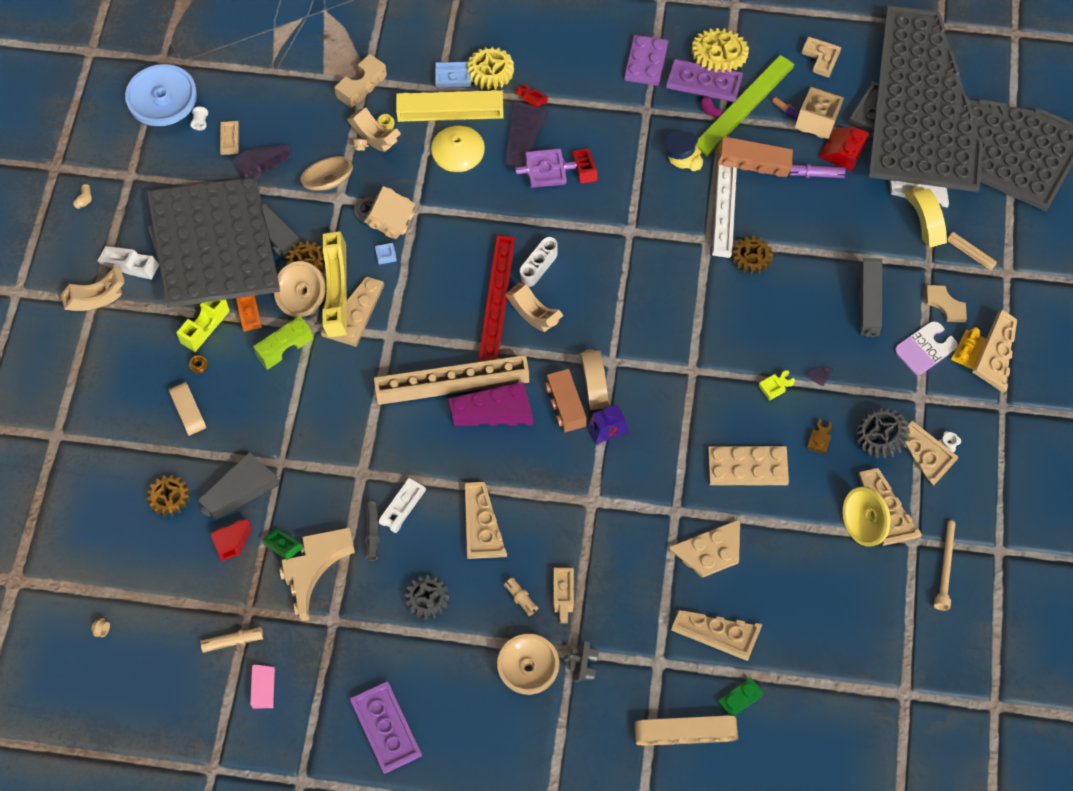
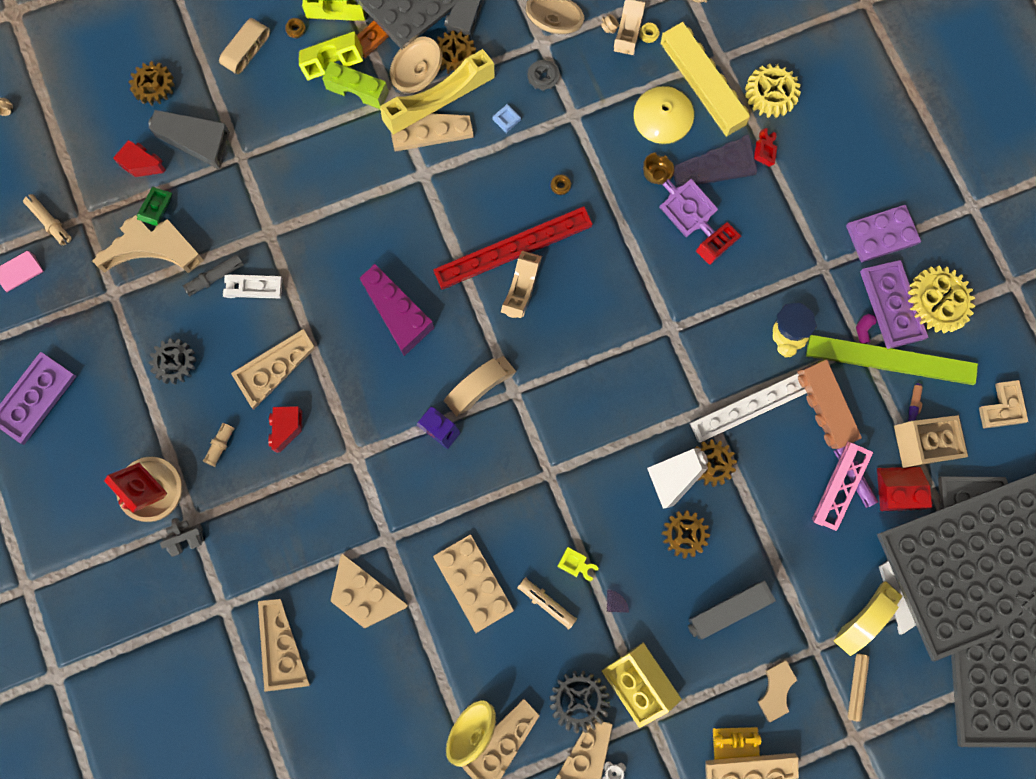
camera: 60 degrees right, 15 degrees up
(249, 331) = (316, 58): none -> neon yellow arch
(390, 213) = (545, 95): tan brick -> none
(451, 380) = (401, 256): tan brick -> none
(452, 74) = (742, 60): light blue plate -> none
(467, 239) = (560, 179): none -> pearl gold plate
(501, 172) = (657, 168): none -> pearl gold hair
(525, 664) = (135, 487): none -> red tile
(537, 536) = (286, 425): none -> red slope
(541, 254) = (587, 256): white beam -> none
(563, 592) = (243, 481): tan hinge -> none
(565, 400) = (442, 371): nougat brick -> none
(686, 730) = (163, 670): tan beam -> none
(740, 698) = (225, 703): green plate -> none
(748, 279) = (677, 475): none -> white slope
(786, 423) = (526, 587): none -> tan pin
(794, 302) = (693, 541): none -> pearl gold gear
(817, 183) = (835, 483): none -> bright pink fence
(820, 439) = (541, 639): pearl gold plate -> none
(893, 388) = (641, 685): none -> light yellow slope
(922, 351) = (706, 694): piece -> none

